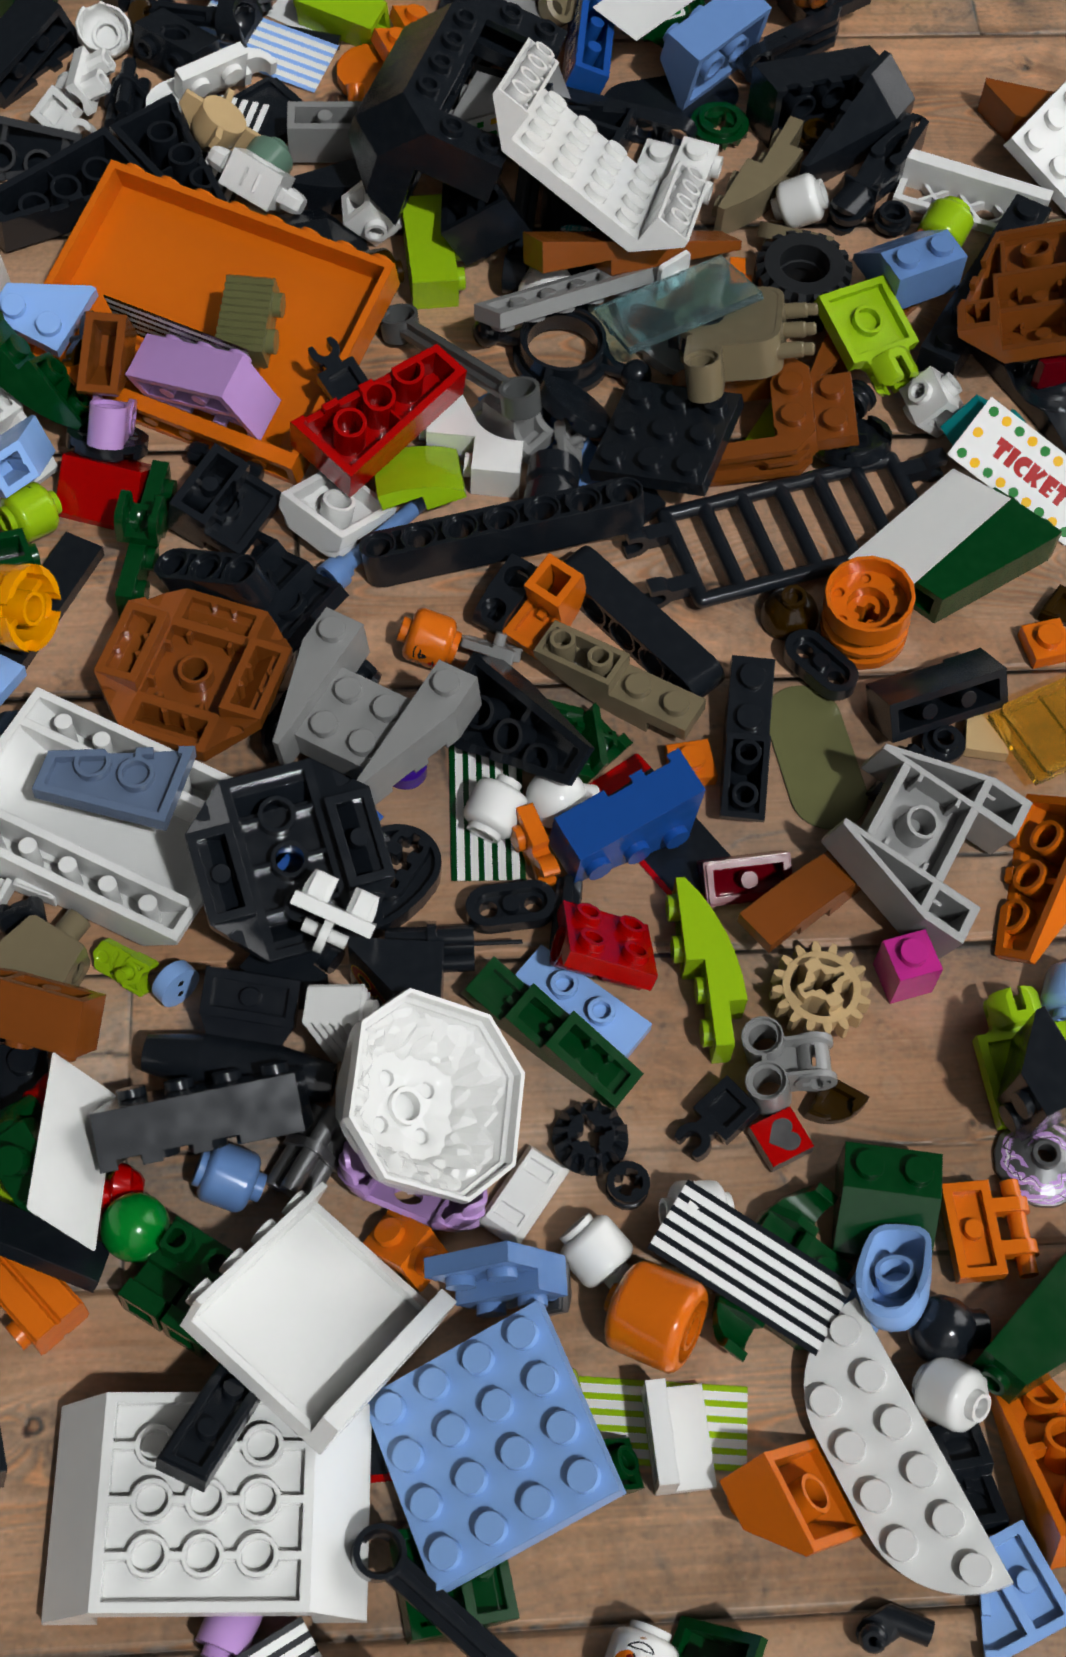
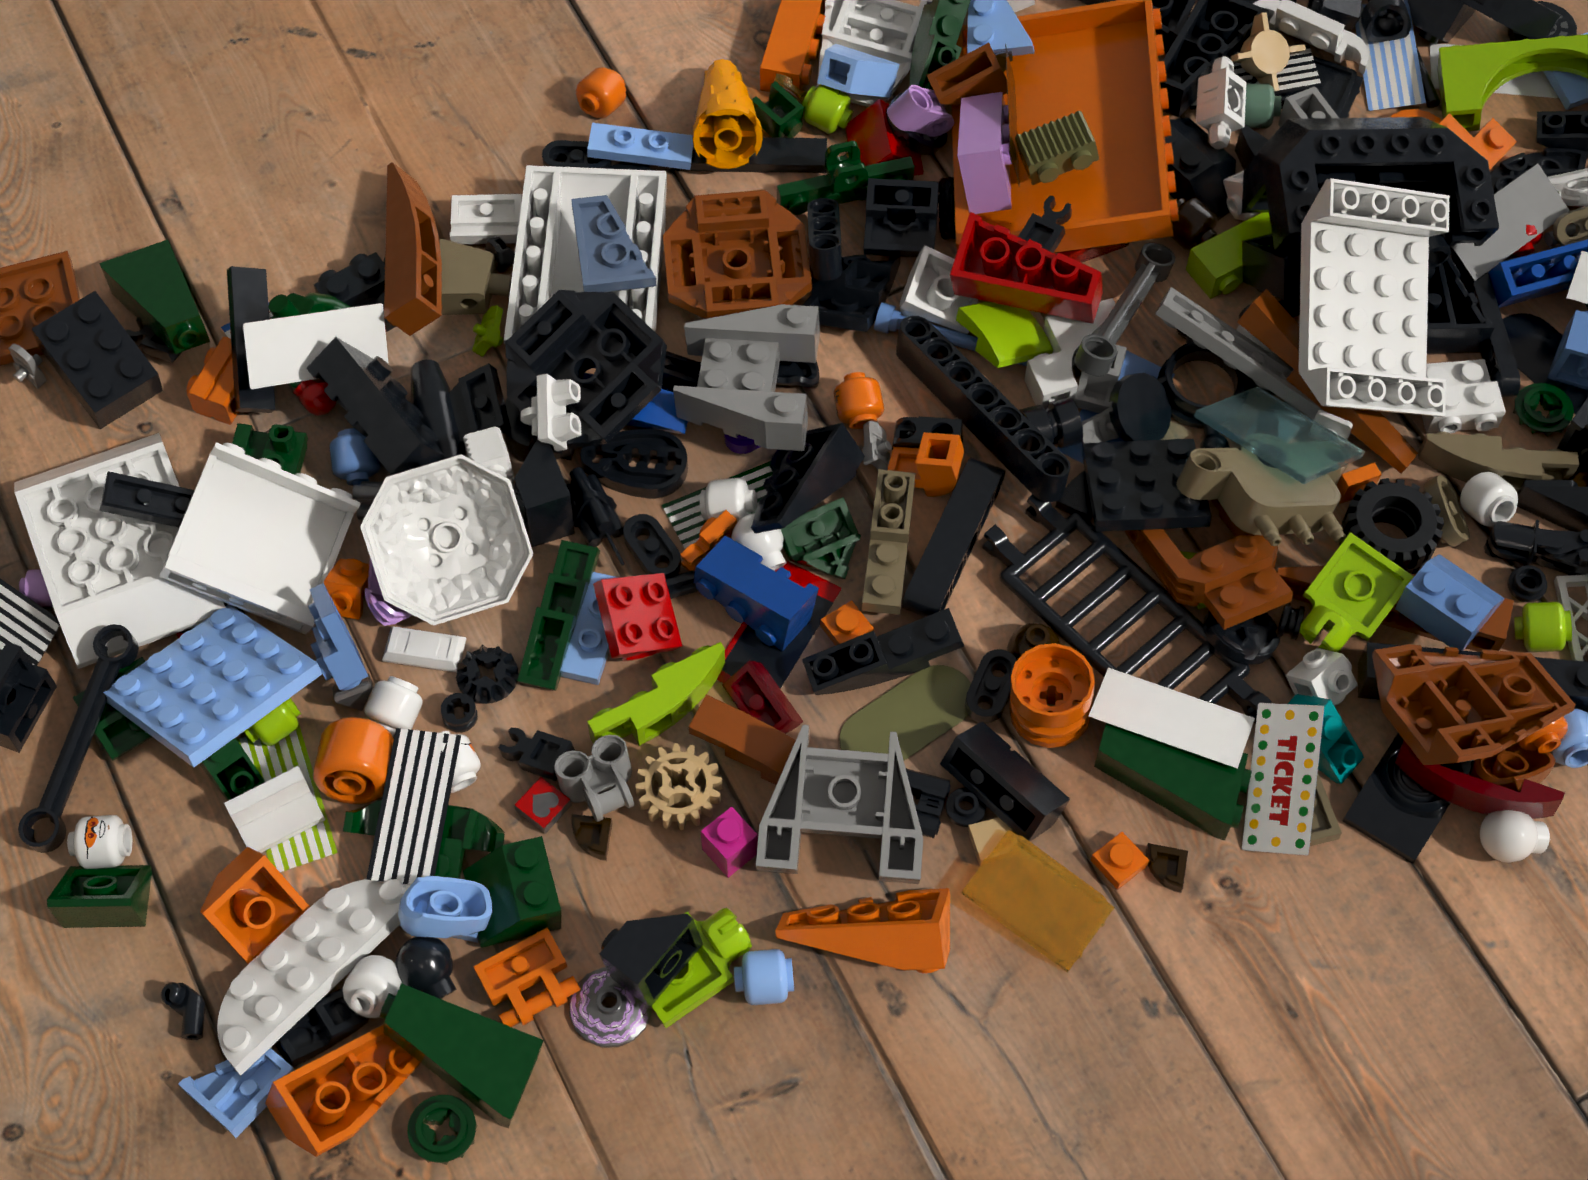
camera: 70 degrees right, 0 degrees up
(134, 1226) = (290, 408): green piece -> none
(175, 983) = (487, 355): light blue tile -> none

